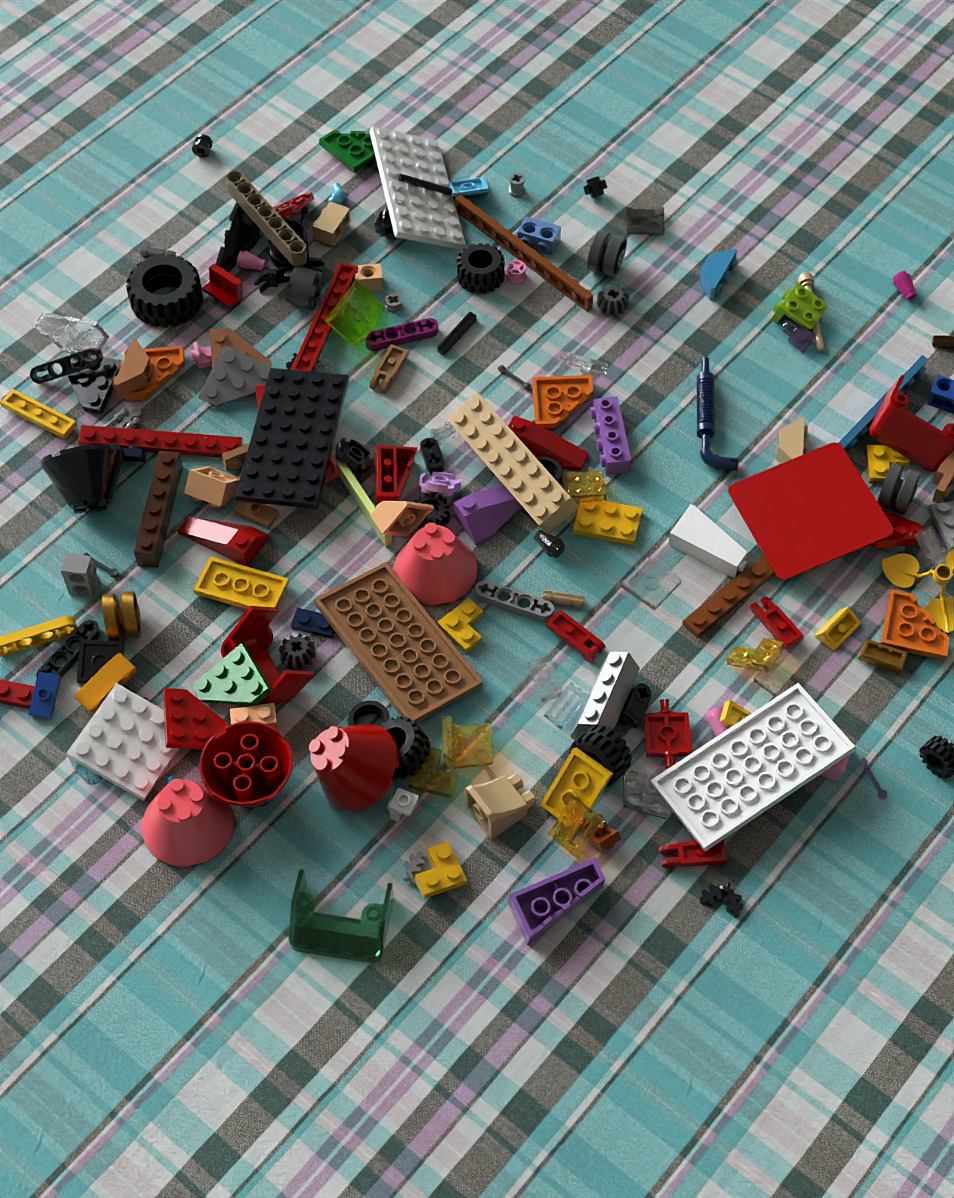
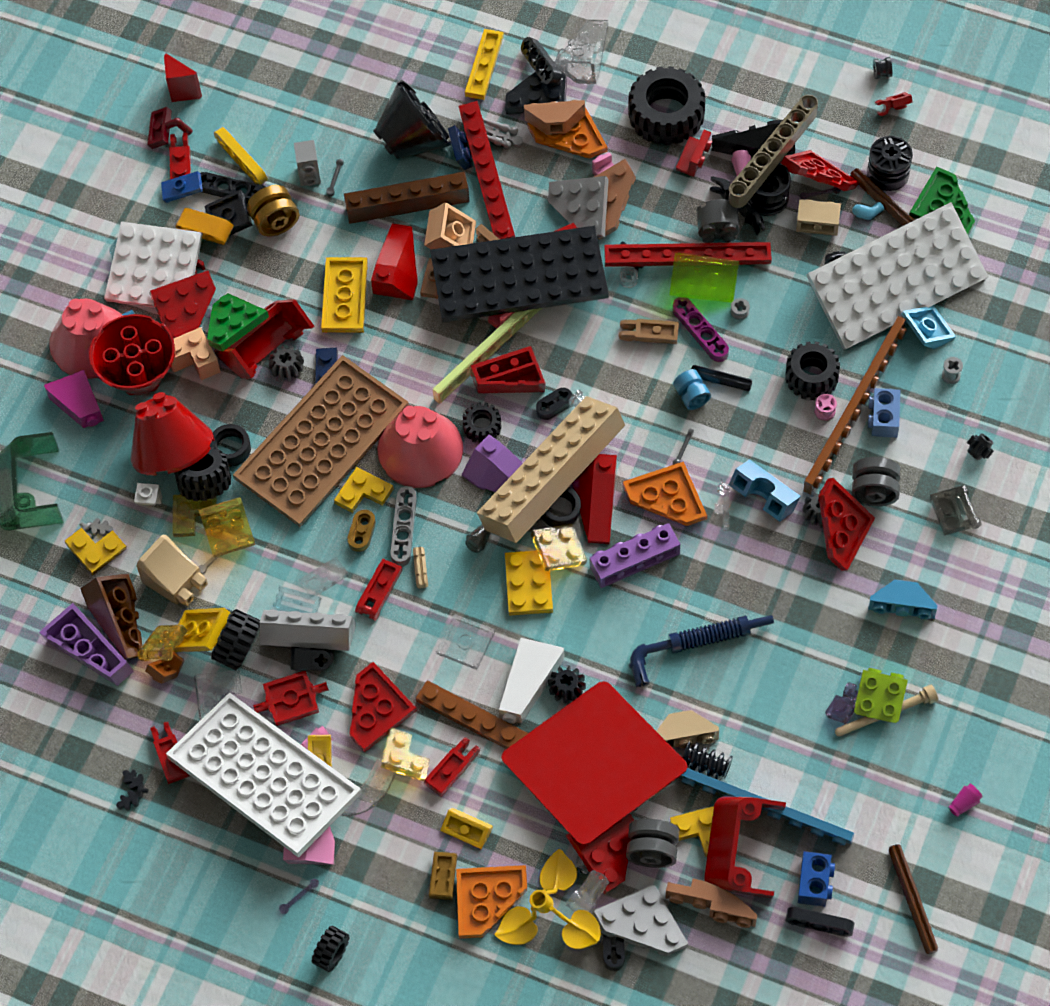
camera: 75 degrees right, 5 degrees up
(145, 250) = (722, 84): light grey axle -> none
(239, 147) = (896, 101): none -> red plate
(257, 848) = (75, 398): none -> dark pink slope
(303, 164) = (890, 163): none -> black wheel
(342, 179) = (880, 196): none -> reddish brown axle
(354, 455) = (528, 326): black plate -> none
(370, 277) = (761, 283): light nougat brick -> none
(400, 517) = (453, 392): light nougat slope -> none
(425, 184) = (896, 280): black bar -> none
(440, 482) = (507, 422): lavender plate -> none
(457, 355) = (692, 389): none -> dark azure wheel
(509, 634) = (360, 531): none -> pearl gold plate
(510, 870) = (112, 605): none -> reddish brown wedge
(595, 322) = (753, 479): none -> dark azure arch
(637, 286) = (843, 523): none -> red plate
(698, 666) = (376, 707): none -> red plate
(723, 514) = (574, 681): none -> black gear
(830, 431) = (706, 761): none -> black piece

